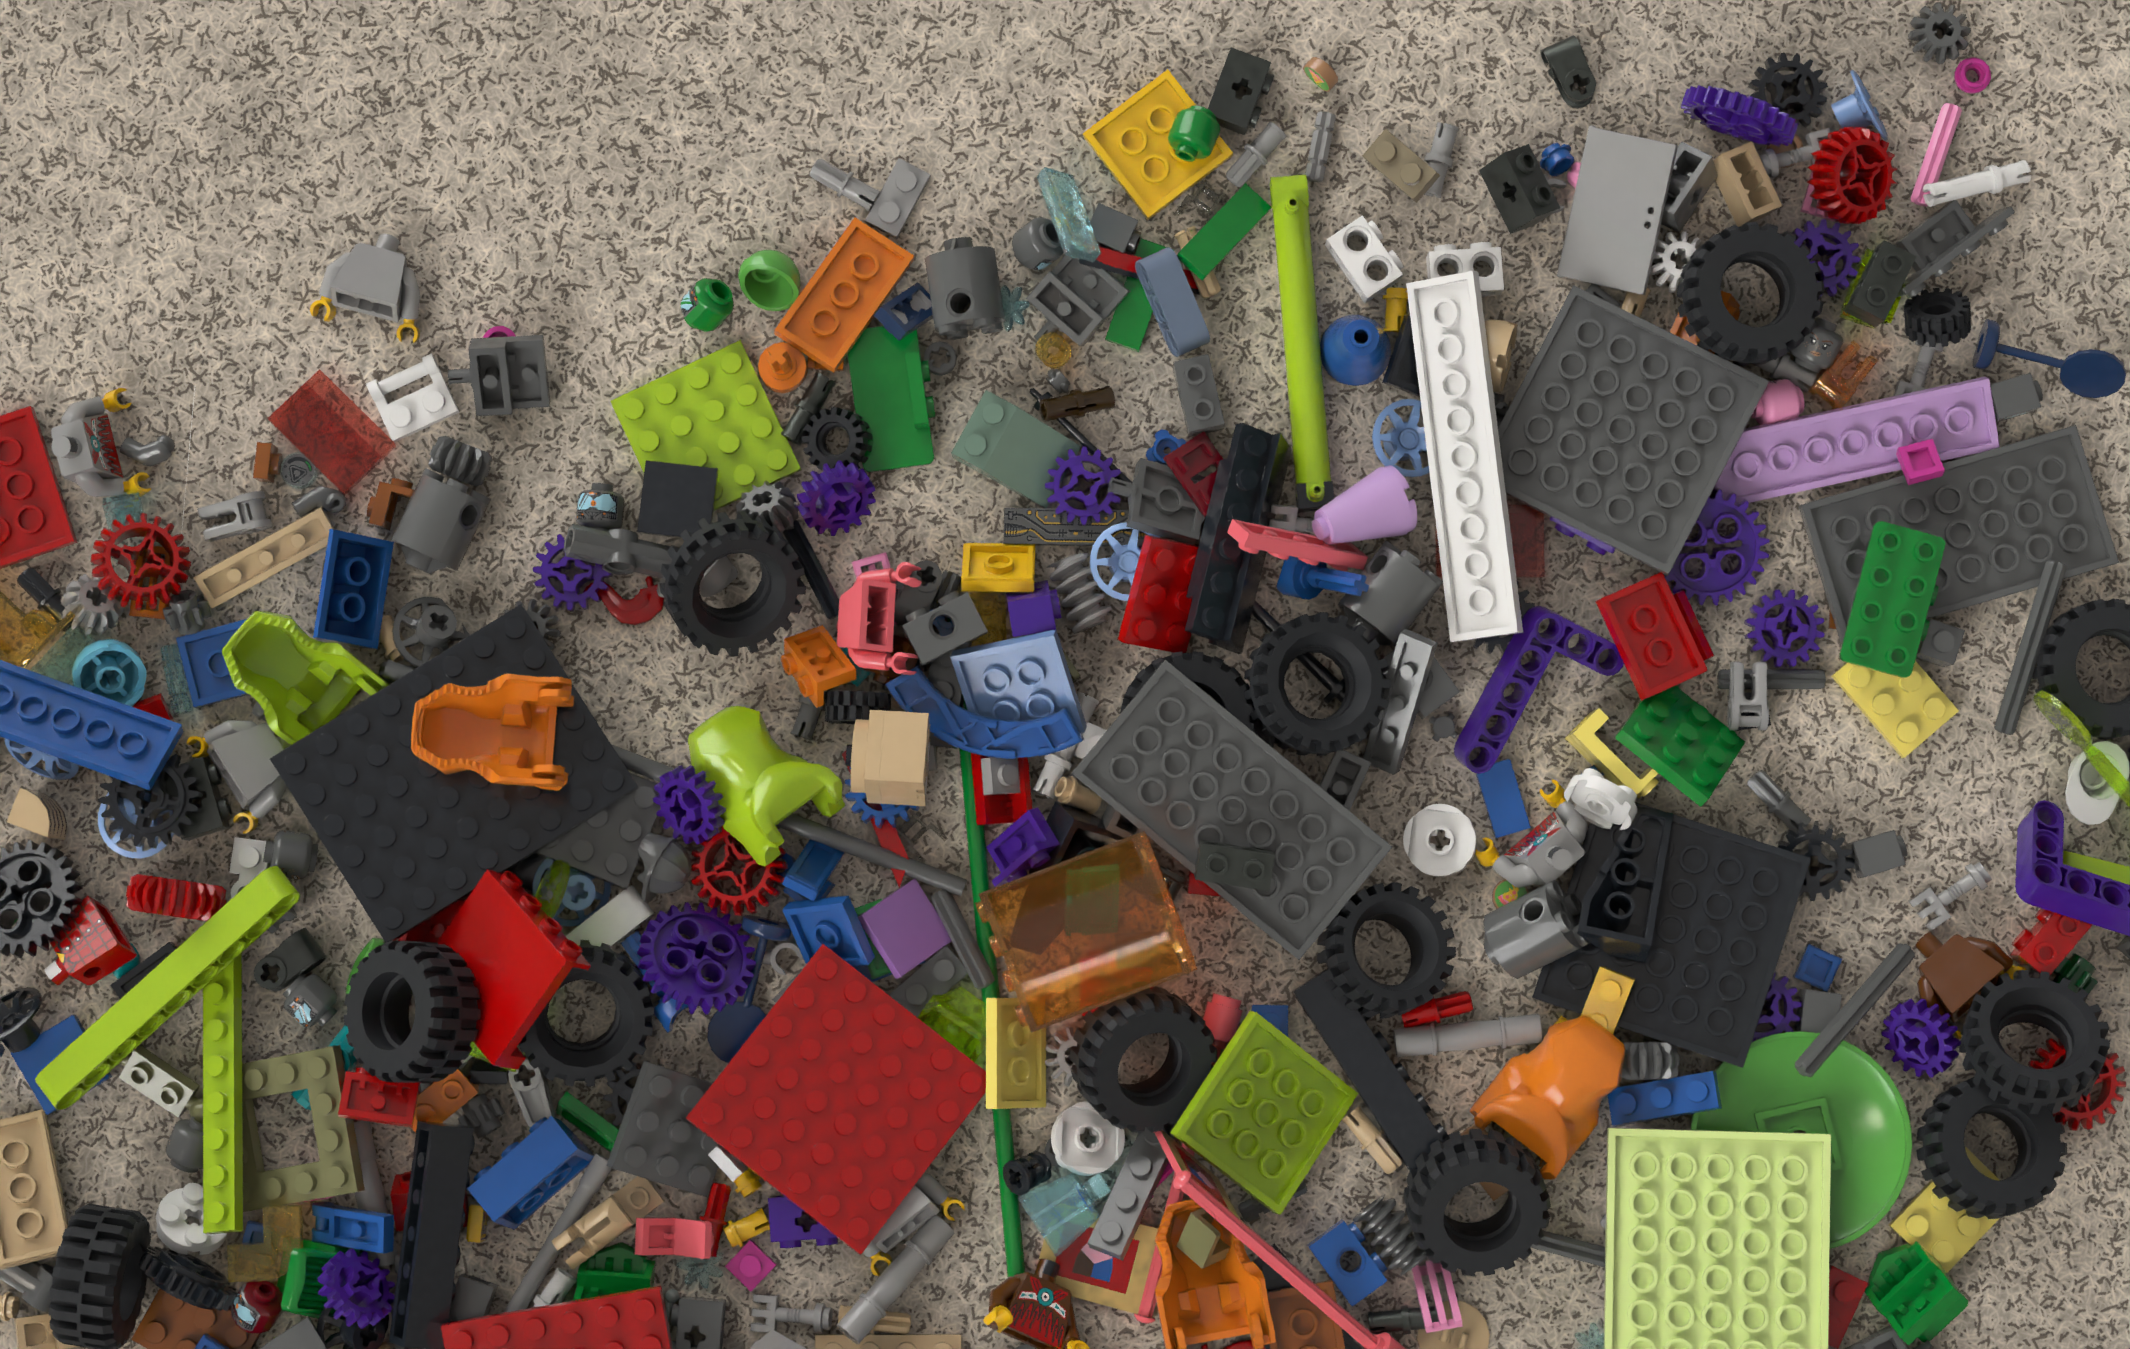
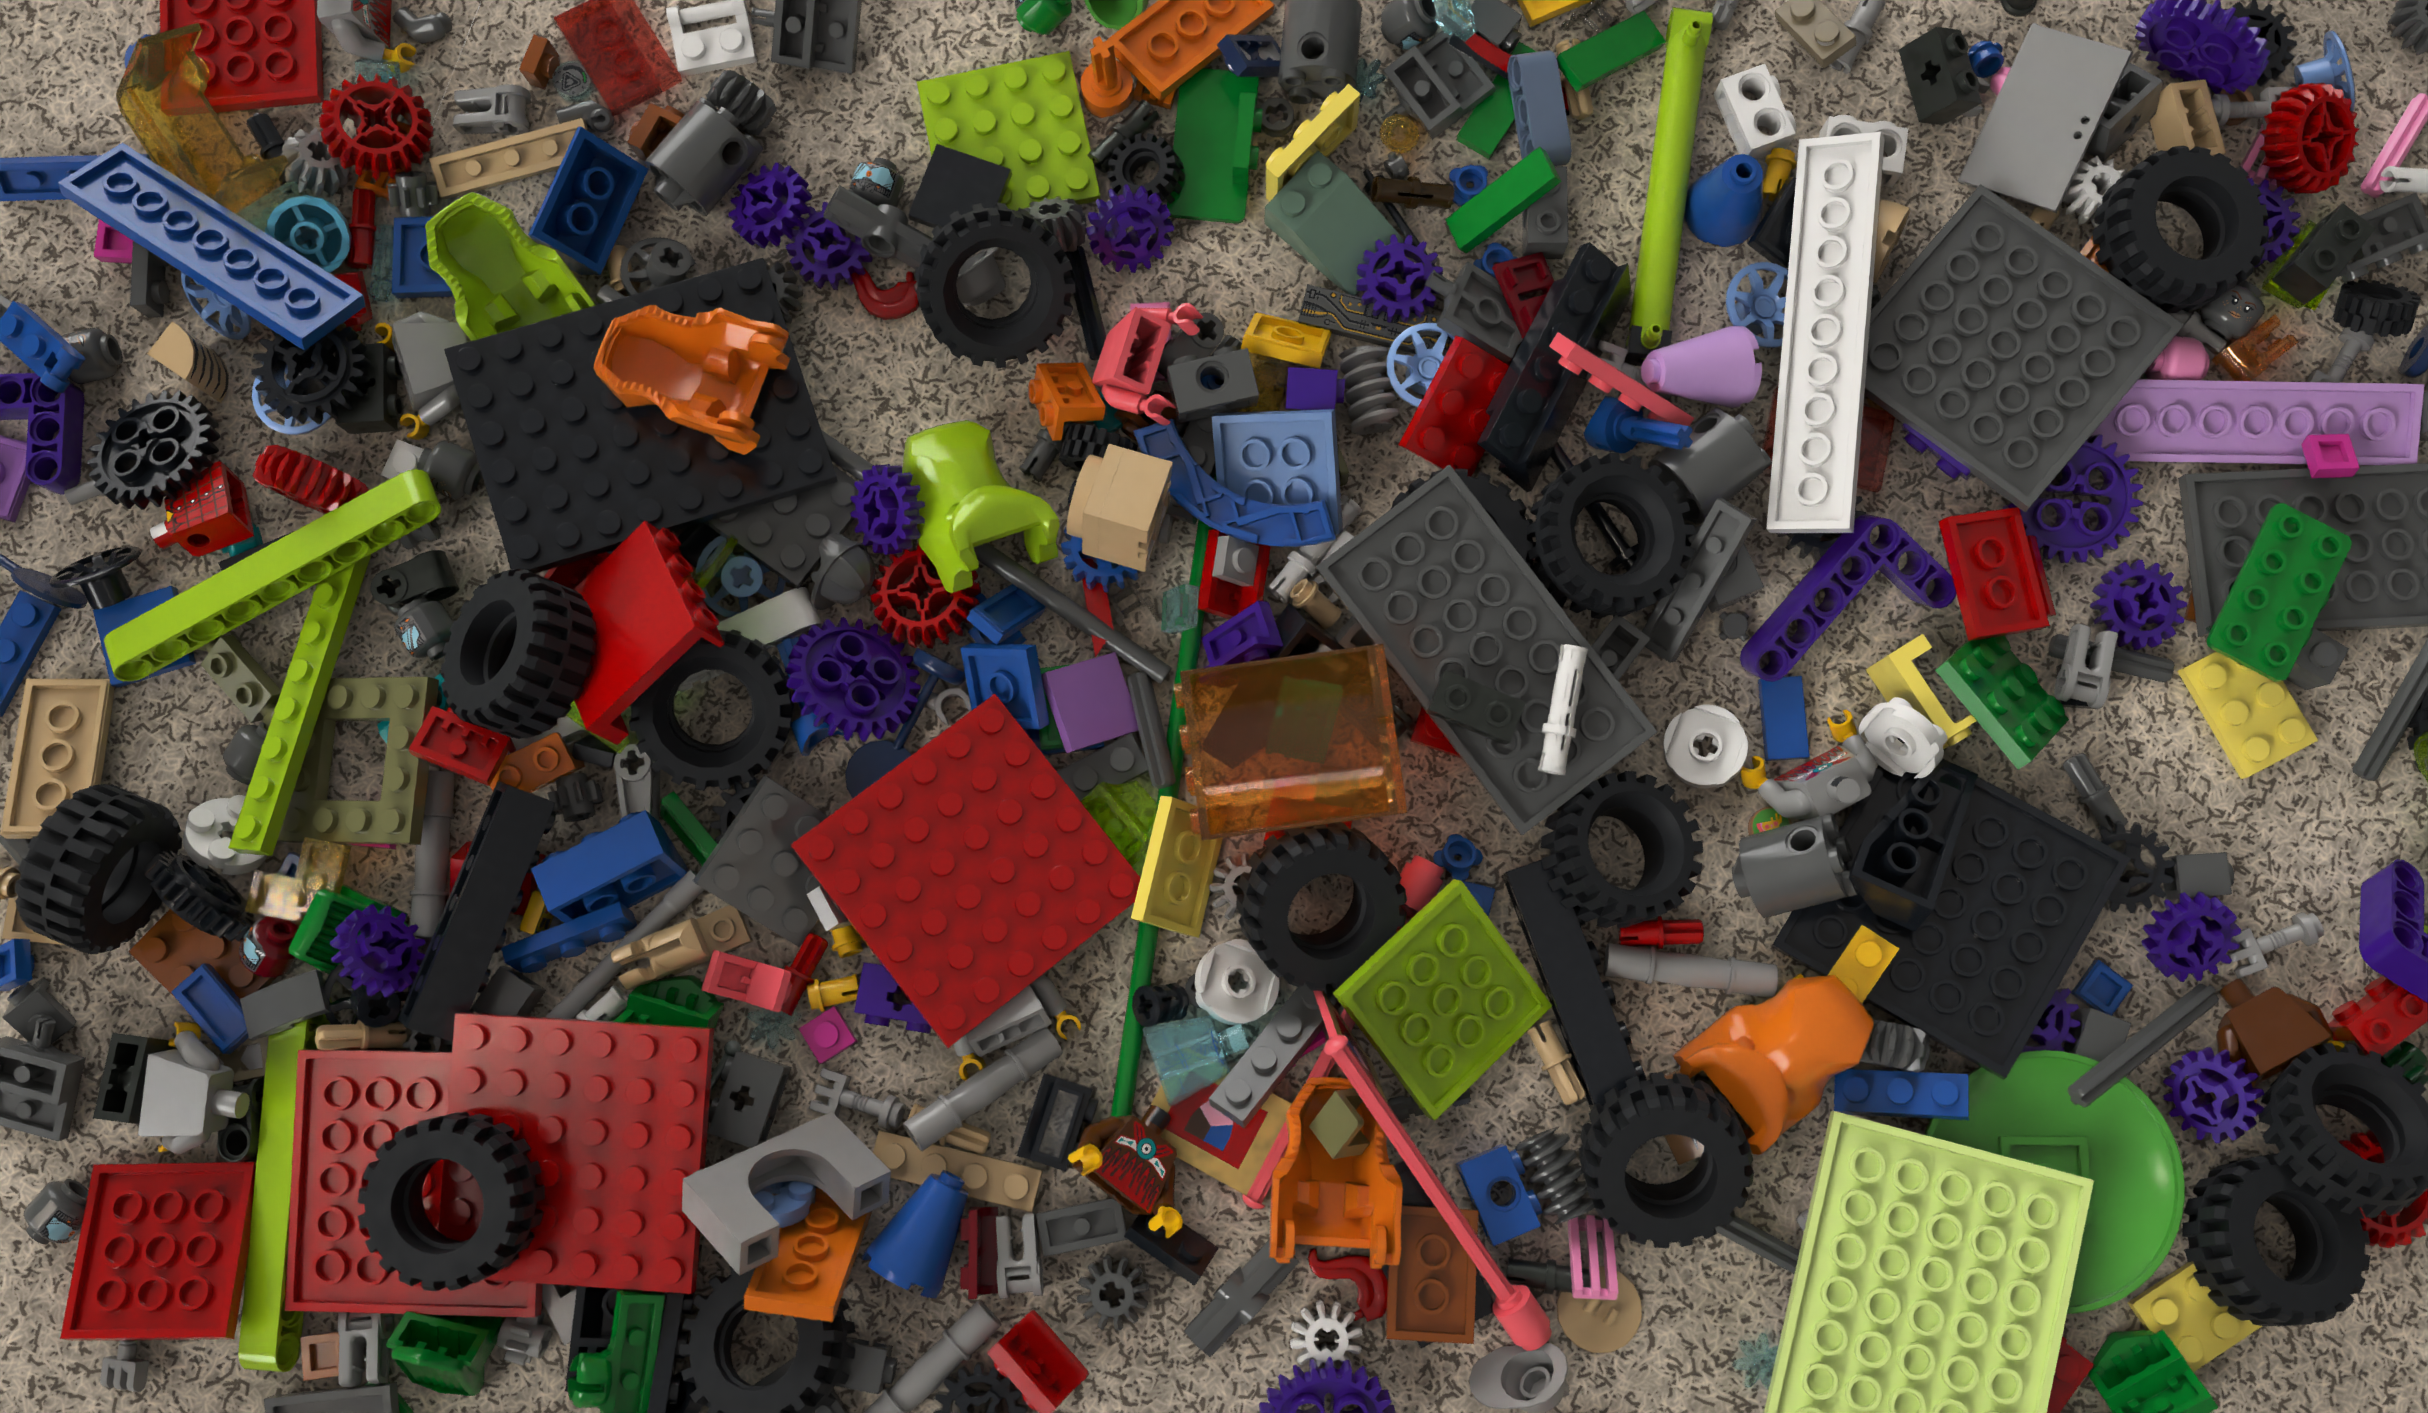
camera: 15 degrees right, 5 degrees down
(149, 652) = (362, 229): none -> red axle
(353, 1227) = (399, 885): blue plate -> none
(510, 1237) = (569, 938): none -> blue plate
(518, 532) = (770, 205): none -> dark purple gear
(962, 827) = (1180, 609): none -> clear light blue tile
(964, 1291) = (1057, 1121): none -> black window
(994, 356) = (1322, 134): none -> light yellow plate
(1136, 385) = (1468, 174): none -> blue plate
(1158, 396) = (1503, 200): none -> green tile
(1248, 975) = (1458, 846): none -> blue plate
(1308, 849) = (1562, 711): none -> white pin
(1862, 911) = (2191, 938): none -> dark purple gear

